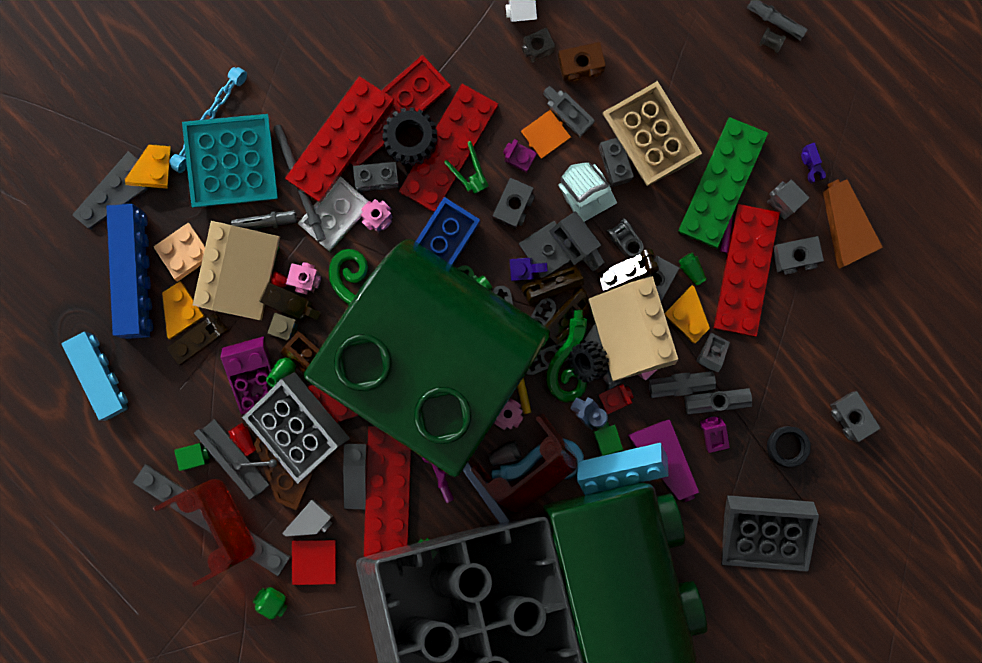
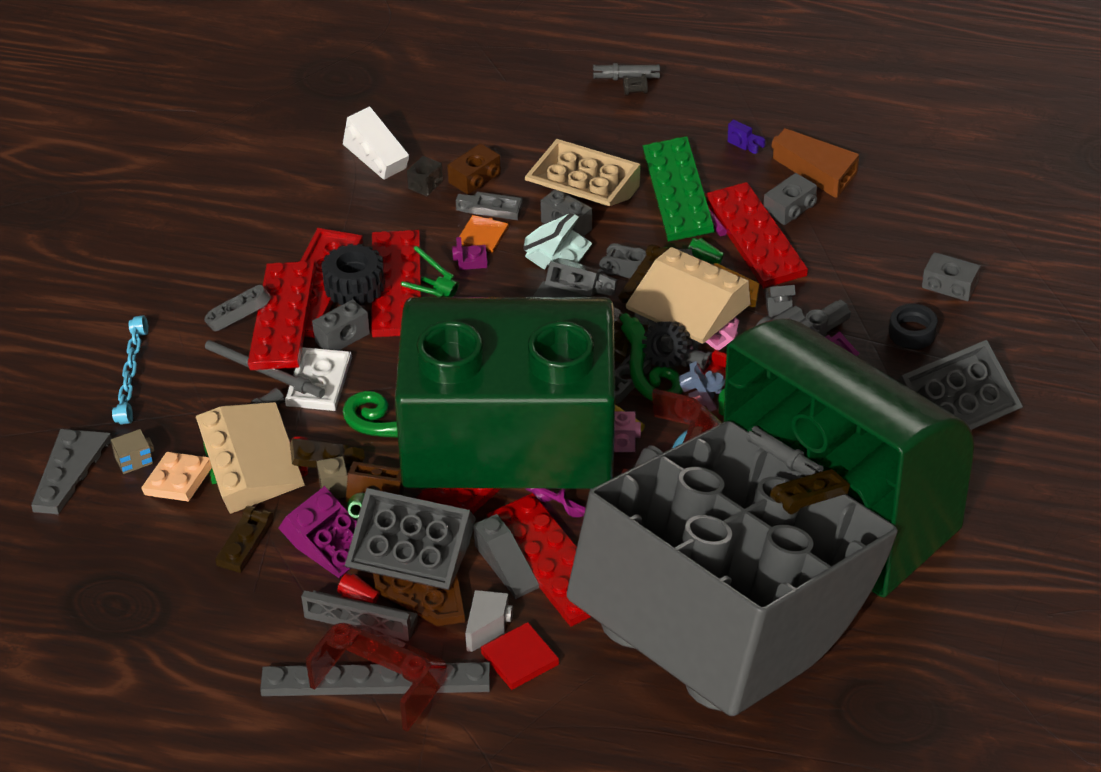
camera: 30 degrees left, 40 degrees down
(95, 376) = (151, 618): medium azure brick -> none
(129, 271) = (132, 508): blue brick -> none
(151, 168) = (97, 426): light orange wing -> none
(164, 208) = (132, 451): none -> dark tan brick
(179, 310) = (208, 525): light orange wing -> none
(192, 456) = (310, 629): green brick -> none
(229, 160) = (178, 381): teal plate -> none
(238, 465) = (407, 586): dark grey hinge -> none
(270, 603) = (499, 709): green head -> none
(296, 276) = (325, 427): bright pink brick -> none
(315, 118) = (237, 308): none -> dark grey beam
(378, 223) = (364, 353): bright pink brick -> none
(514, 191) = (493, 279): dark grey brick -> none
(546, 635) = (809, 490): none -> dark brown plate
(559, 592) = (792, 458): none -> dark grey pin
(787, 198) = (745, 161): dark grey brick -> none

